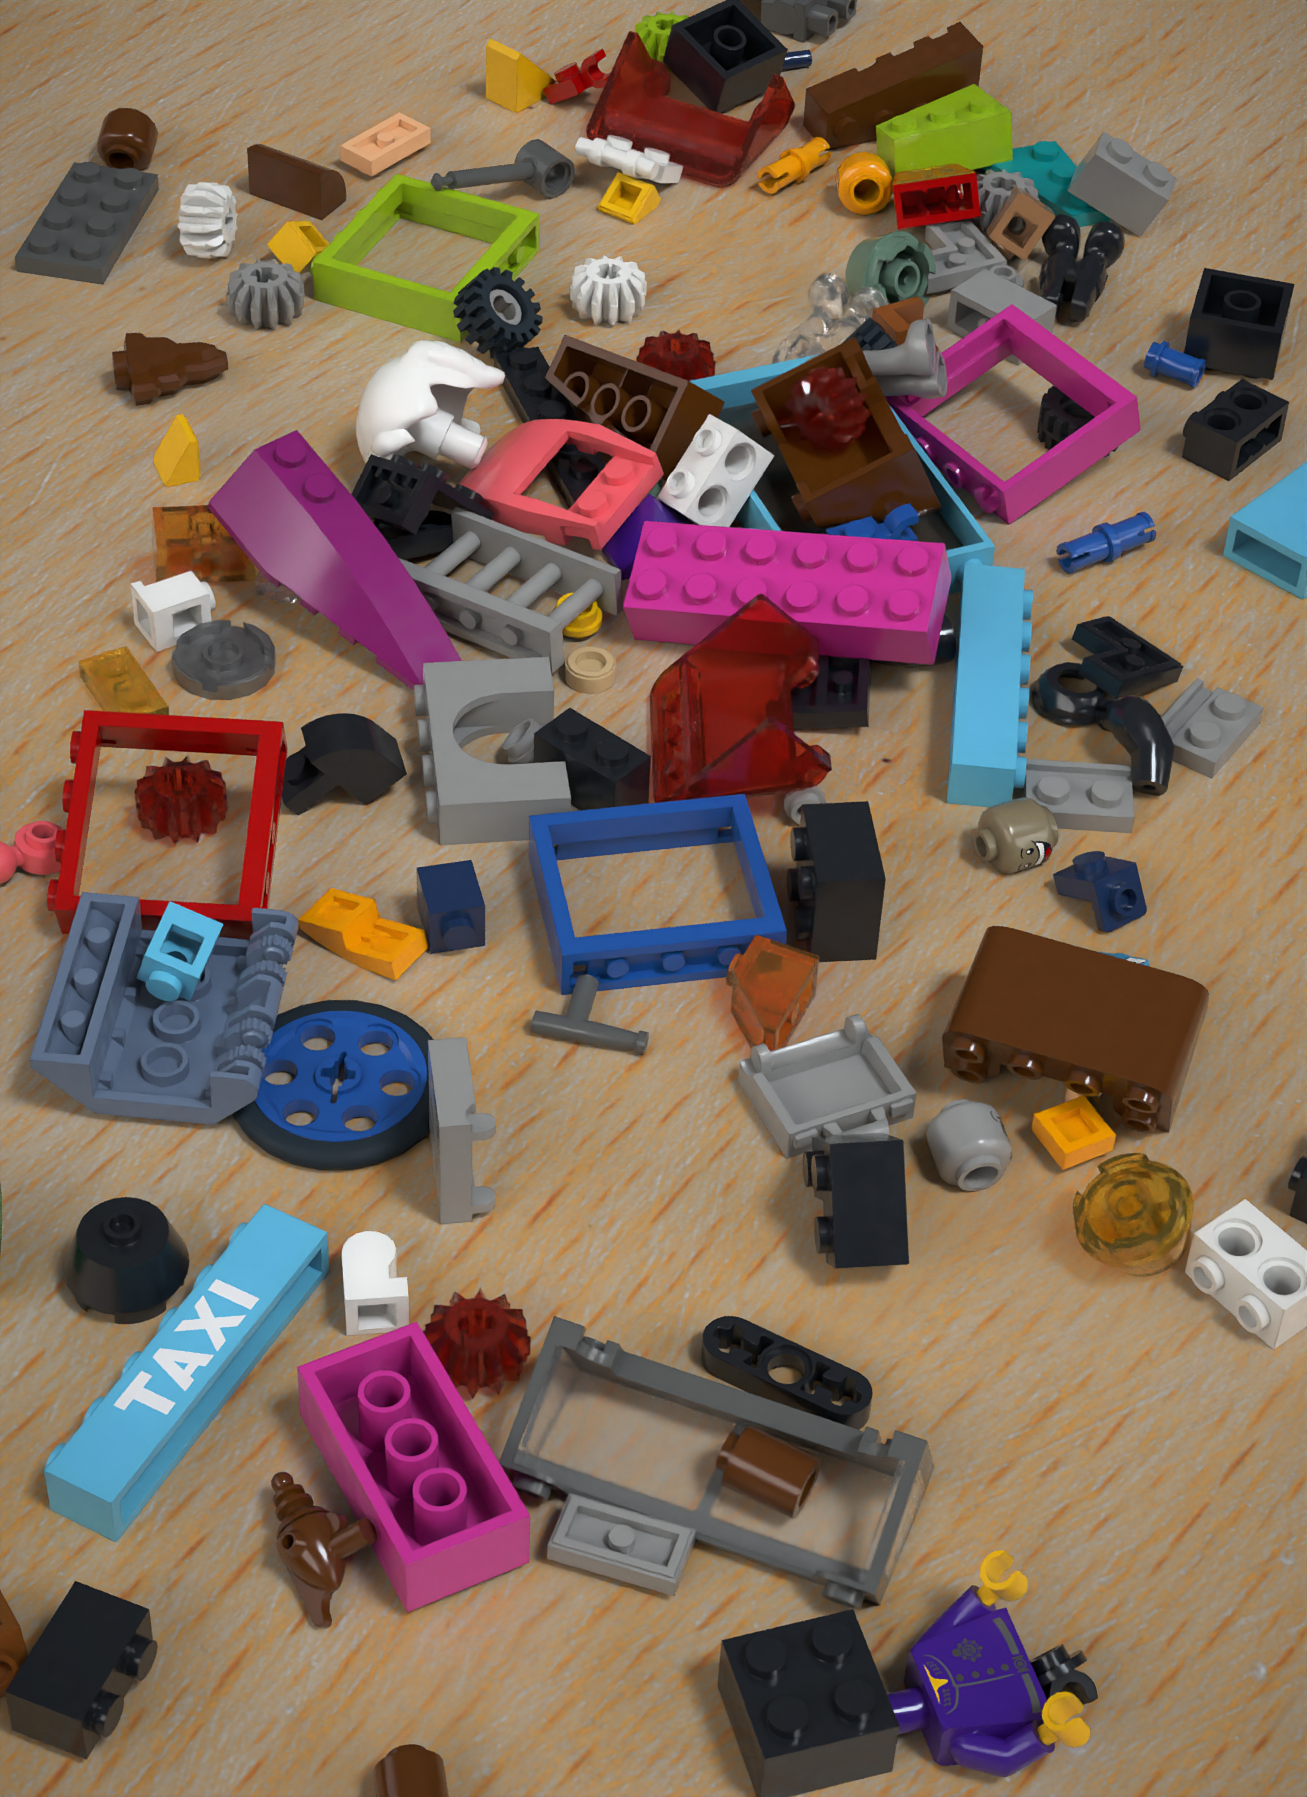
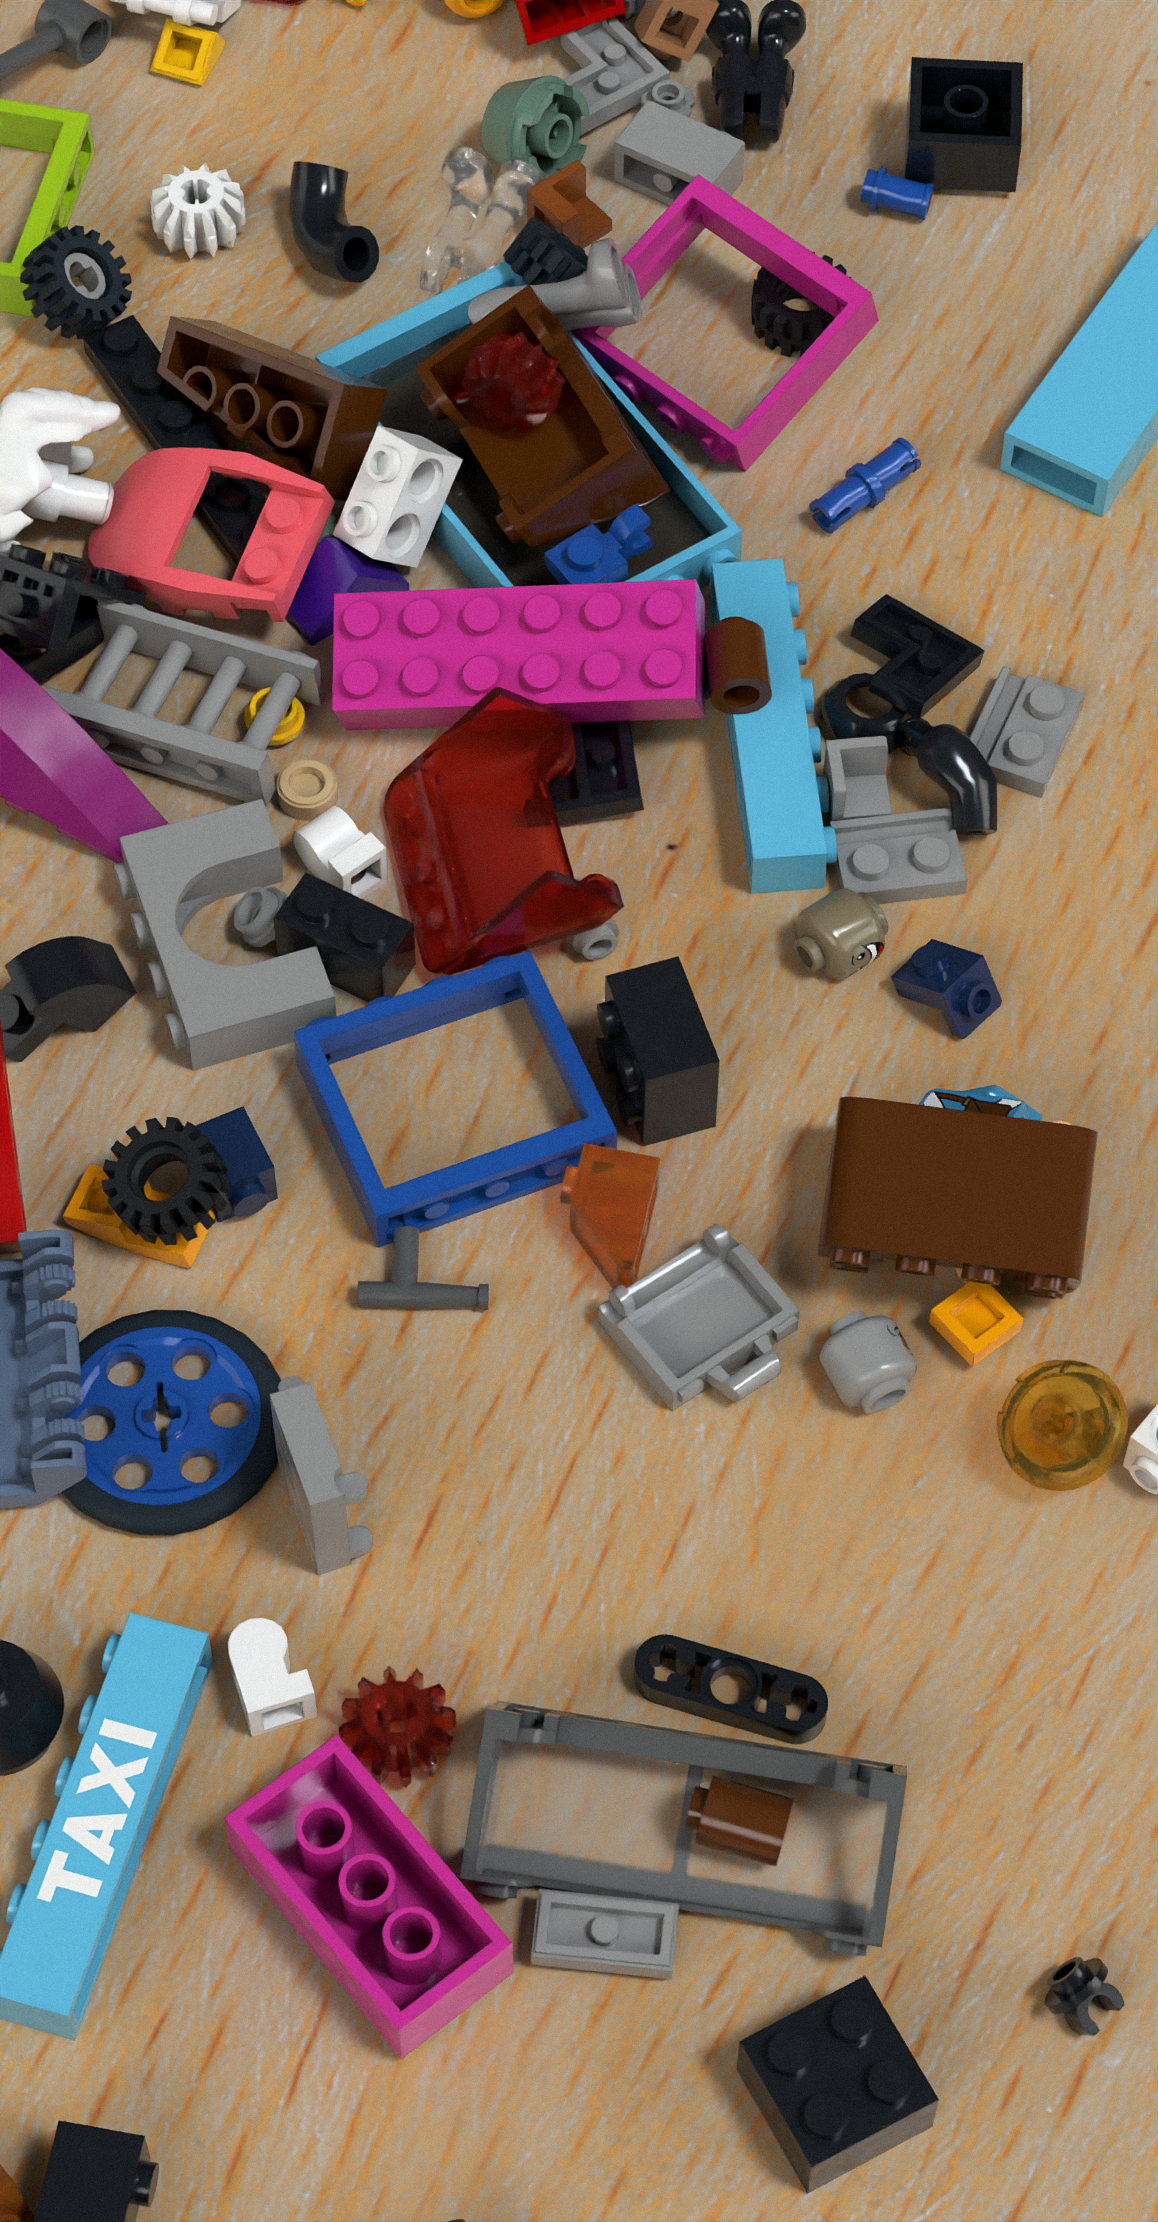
camera: 10 degrees left, 15 degrees up
(315, 1545) = (289, 2008): reddish brown piece -> none
(395, 917) = (143, 1157): none -> black tyre
(607, 705) = (338, 851): none -> white leg
(678, 355) = (306, 313): clear red gear -> none
(705, 310) = (322, 226): none -> black cylinder
(861, 1197) = (772, 1459): black brick -> none
(968, 625) = (737, 666): none -> reddish brown brick
(976, 1686) = (1003, 2025): dark purple torso -> none
(1055, 726) = (857, 778): none -> light grey panel
(1234, 429) = (984, 285): black brick -> none

